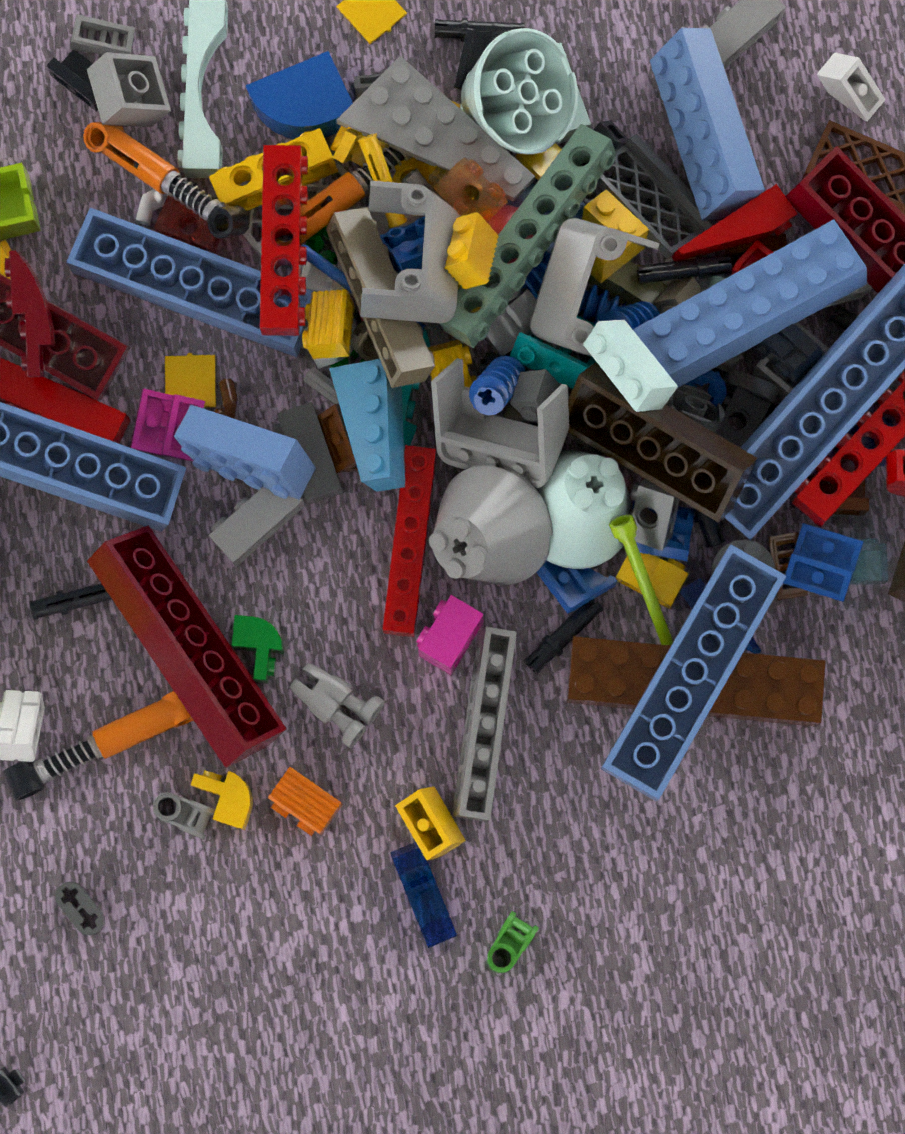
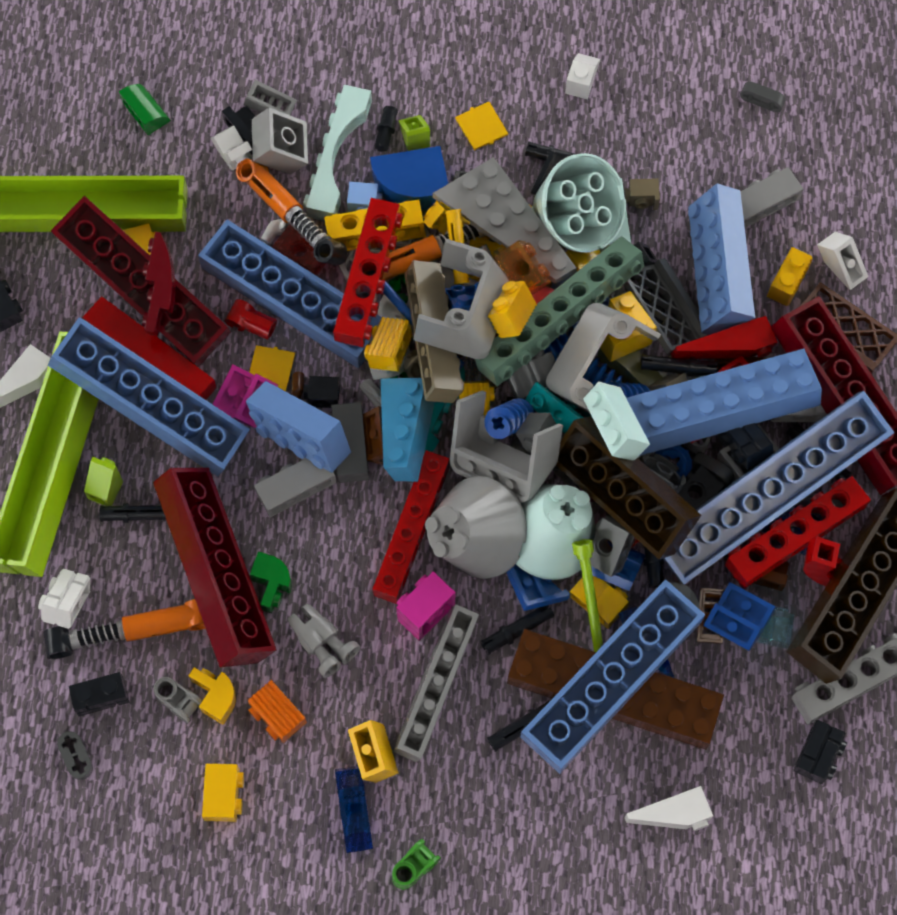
camera: 10 degrees right, 10 degrees down
(25, 572) = (103, 481): none -> lime slope
(70, 109) = (231, 147): none -> white brick
(89, 830) = (99, 694): none -> black brick
(145, 325) = (247, 318): none -> red piece
(249, 137) = (360, 195): none -> light blue brick
(254, 41) = (385, 128): none -> black axle
(261, 397) = (322, 391): none -> black brick
(265, 912) = (221, 792): none -> yellow brick
(292, 38) = (415, 132): none -> lime slope
(591, 55) = (643, 193): none -> dark tan brick
(595, 750) = (500, 739): none -> black pin
(792, 122) = (789, 276): none -> yellow brick
(803, 808) = (679, 811): none -> white slope

